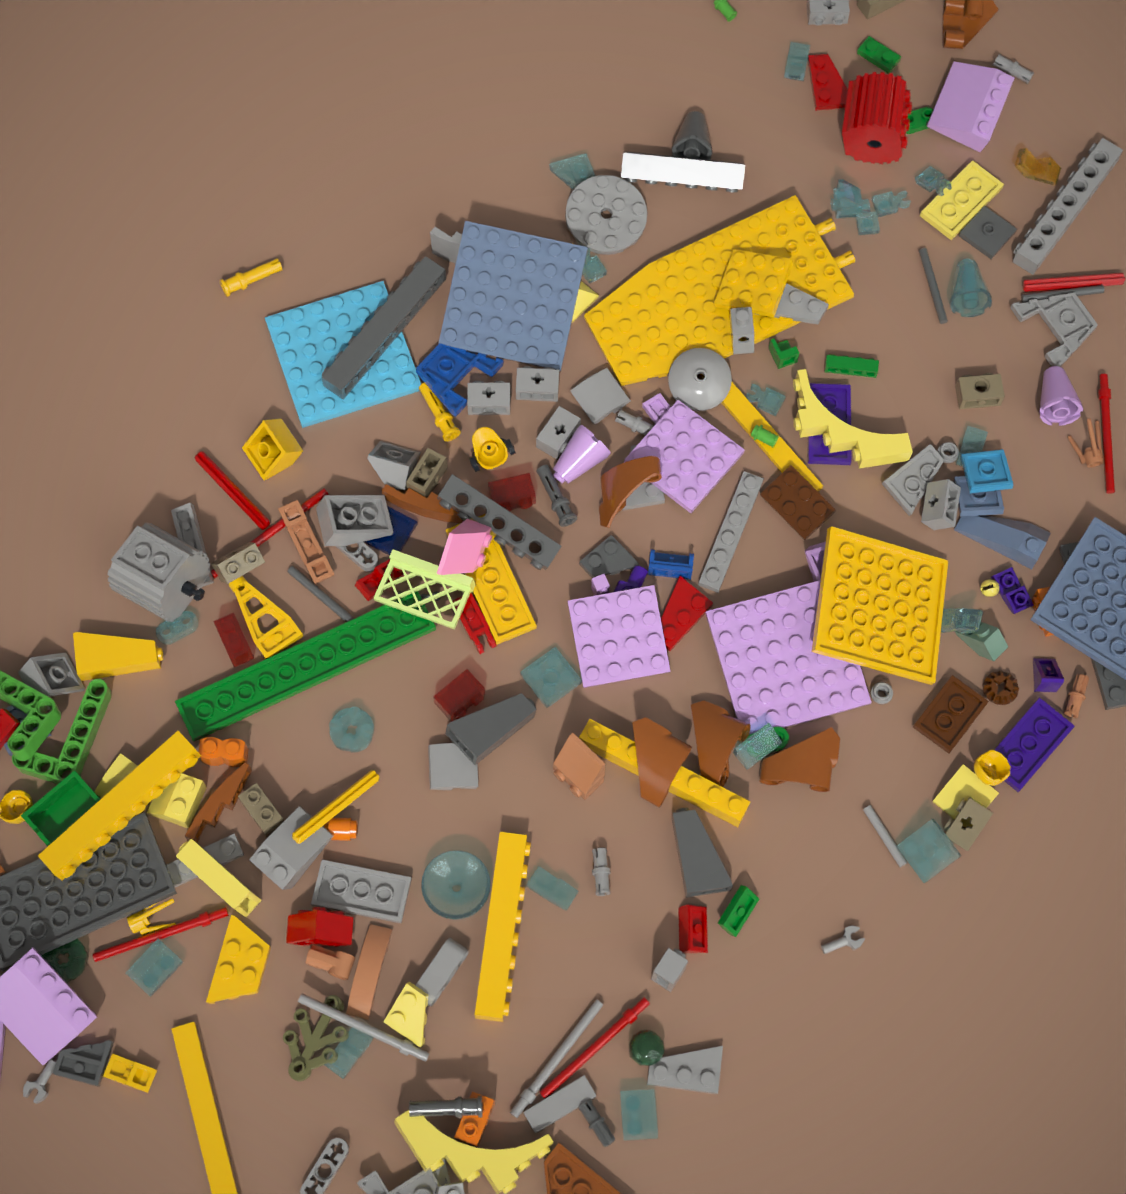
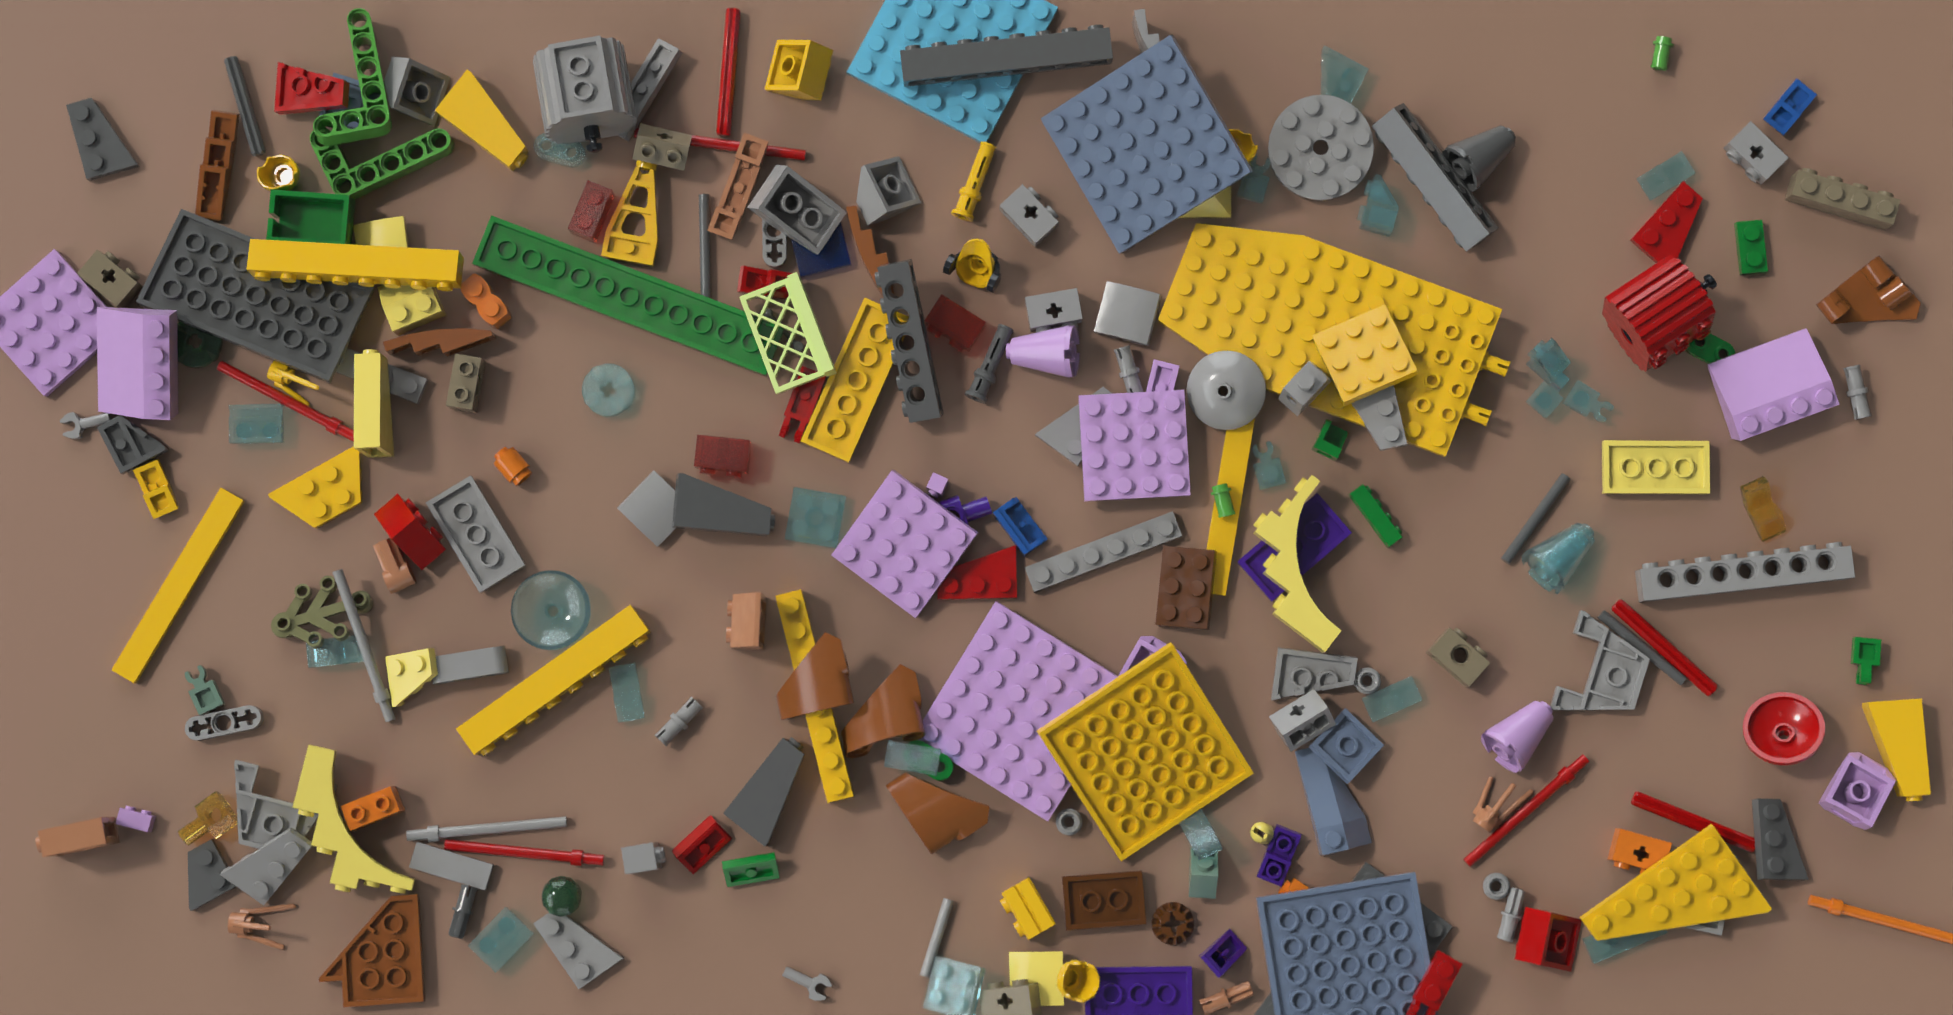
camera: 50 degrees right, 15 degrees up
(285, 859) = (454, 442): light grey slope -> none
(293, 1165) = (205, 694): none -> sand green plate
(335, 807) = (523, 444): yellow axle -> none
(368, 972) = (416, 603): nougat slope -> none
(427, 473) = (899, 231): dark tan brick -> none
(447, 367) = (1022, 149): blue wing -> none
(458, 1107) = (362, 788): dark grey pin -> none
(465, 548) = (850, 338): bright pink slope -> none
(544, 391) = (1087, 260): light grey brick -> none
(608, 559) = (973, 466): dark grey wing -> none
(622, 481) = (1051, 416): dark orange panel -> none
(672, 213) = (1380, 208): none -> clear light blue slope
(916, 763) = (1027, 908): none -> yellow brick
(933, 179) = (1650, 422): clear light blue plate -> none
(987, 232) = (1644, 521): dark grey plate -> none
(987, 471) = (1375, 734): dark azure plate -> none

